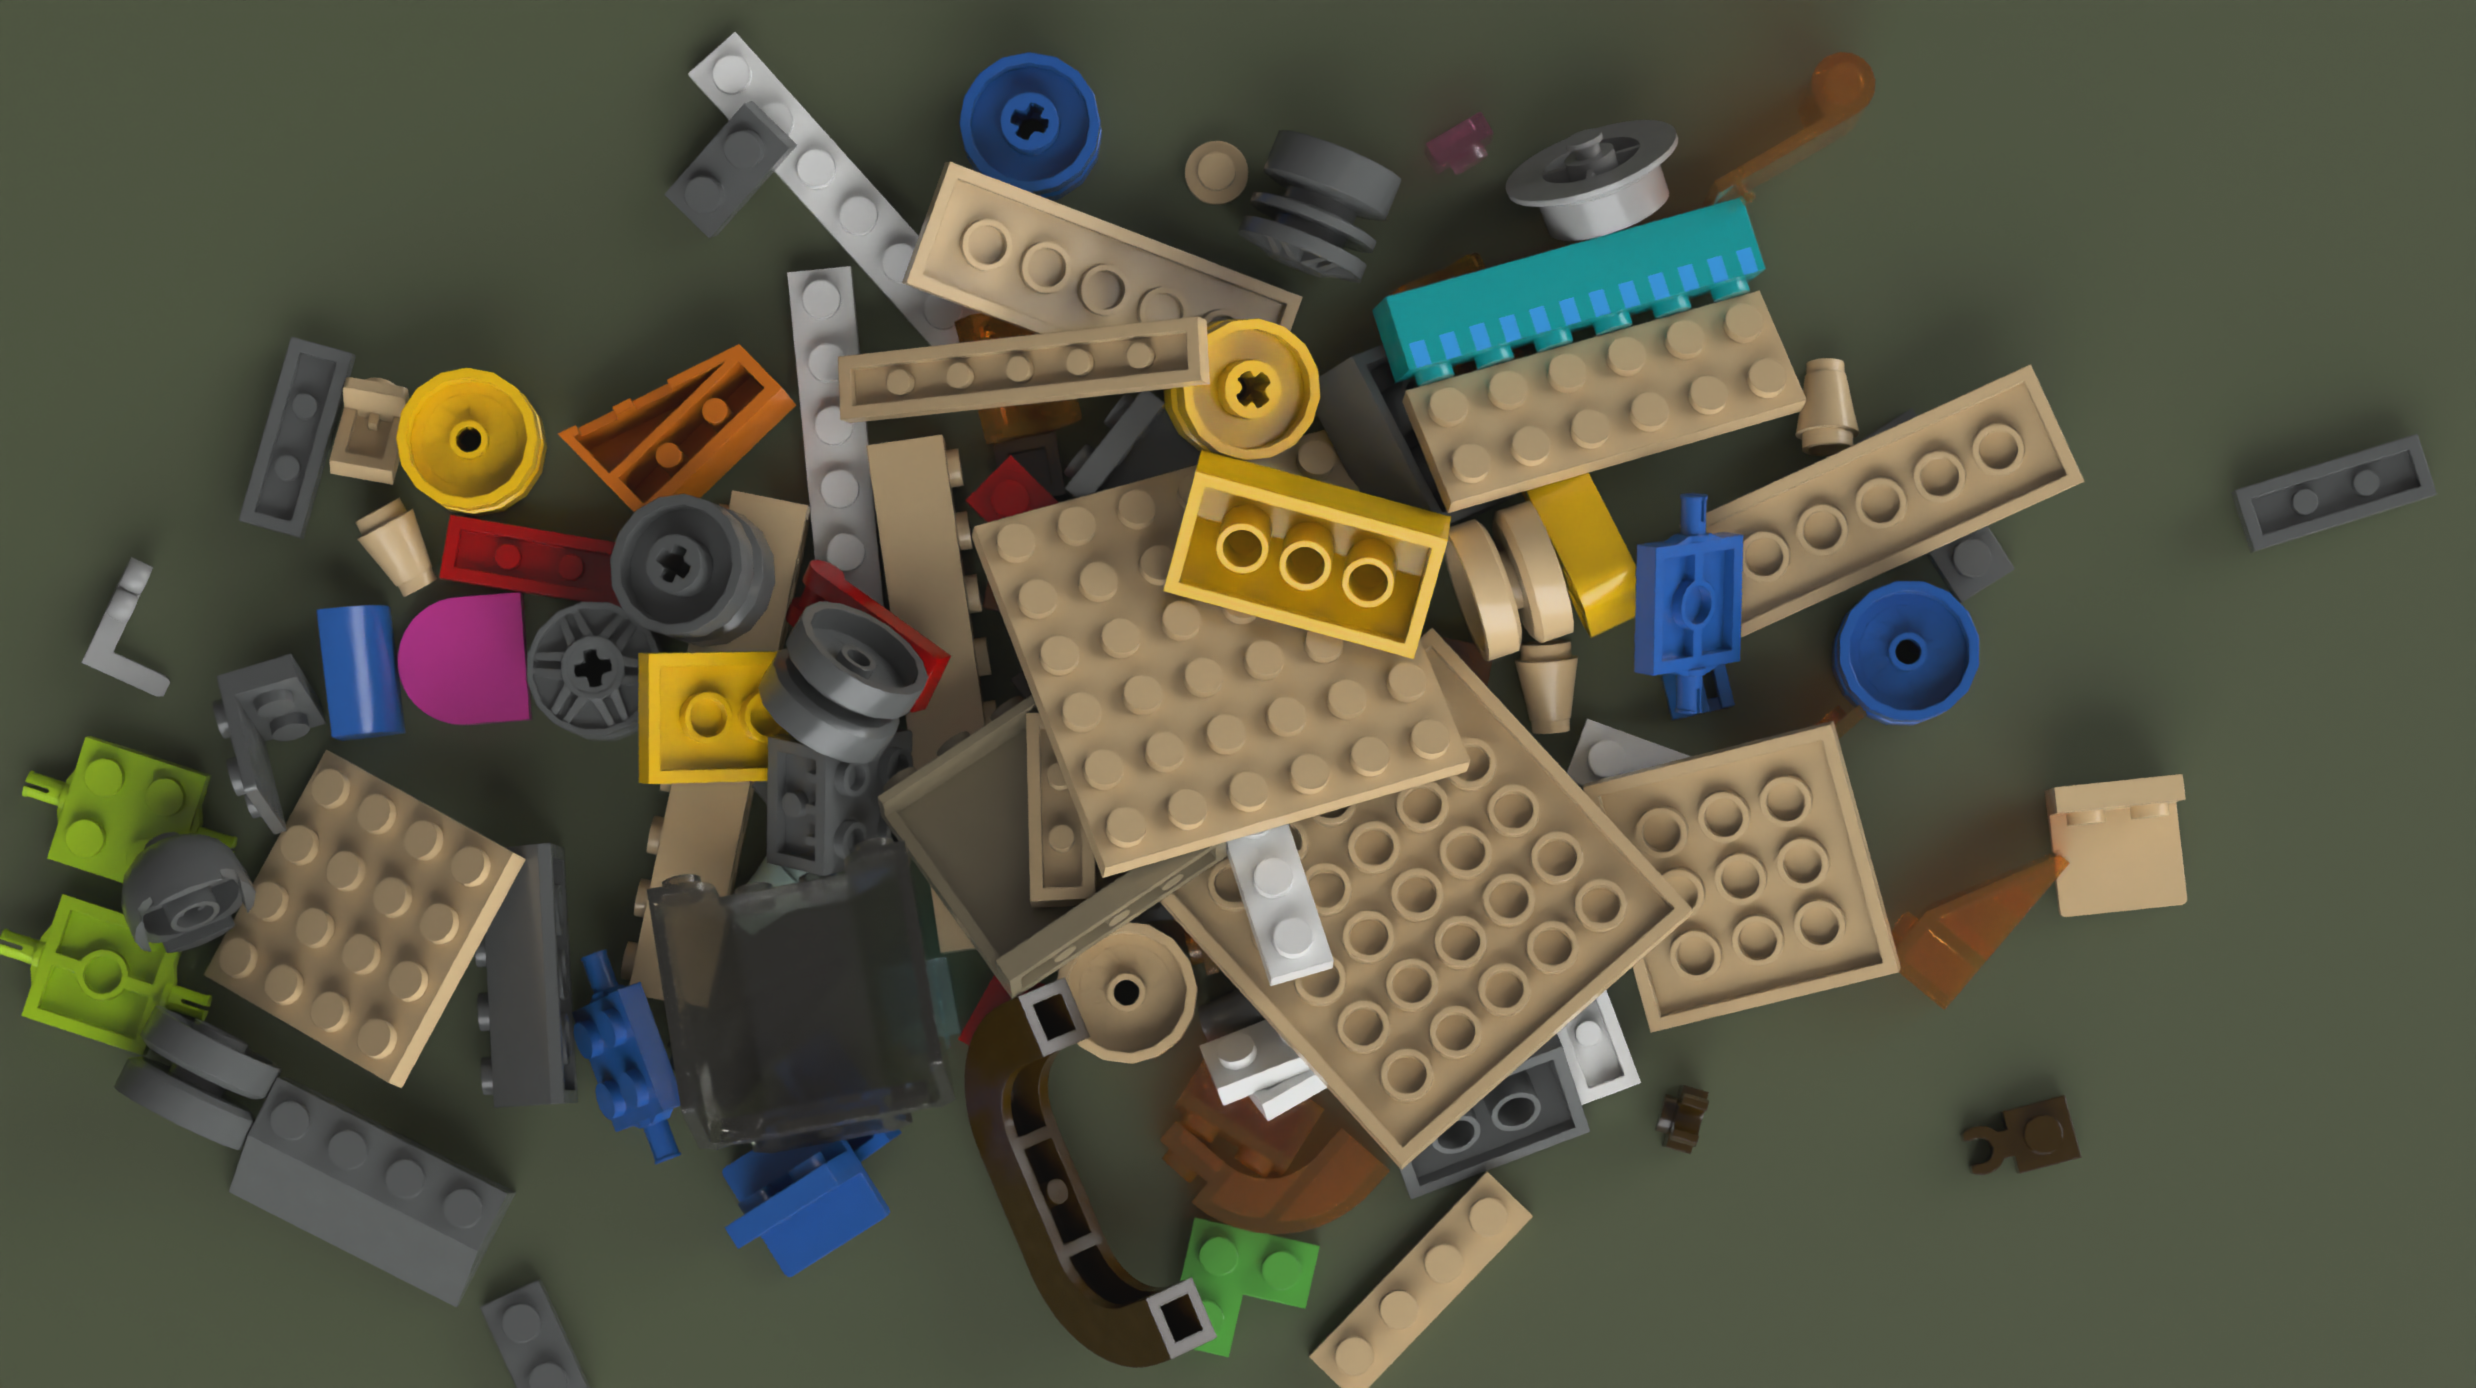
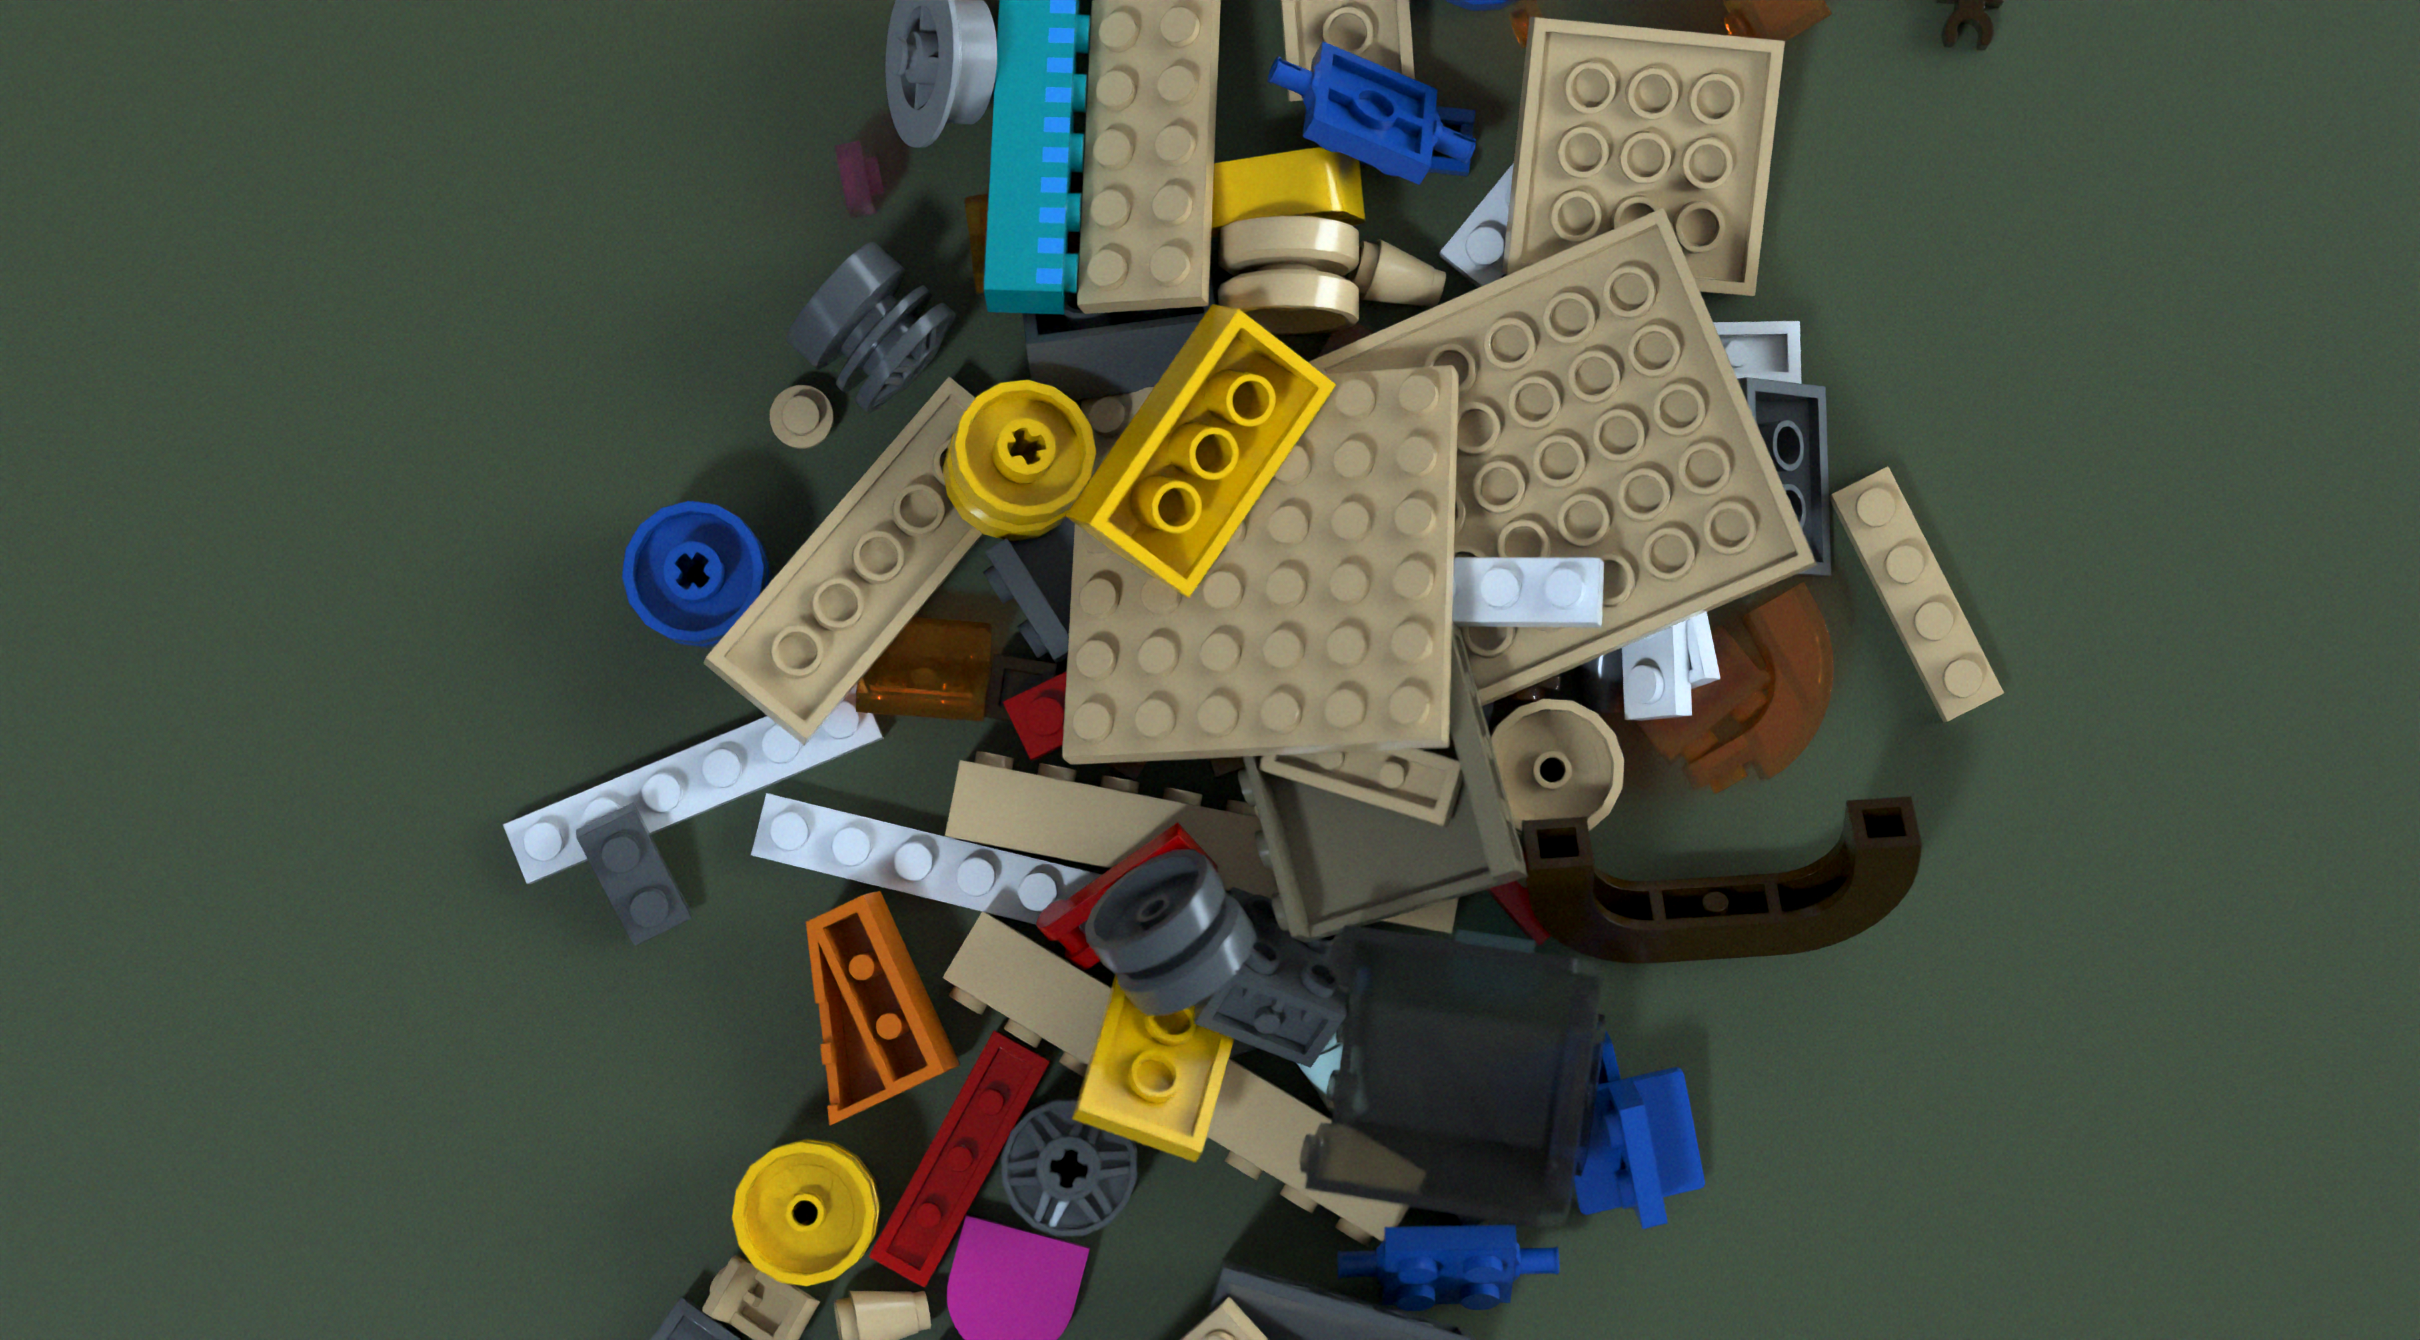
camera: 75 degrees left, 0 degrees up
(692, 570) = (984, 1069): dark grey wheel -> none
(1024, 370) = (929, 657): tan plate -> none
(1238, 1263) = (1839, 754): bright green plate -> none
(1681, 1118) = (1847, 293): dark brown plate -> none

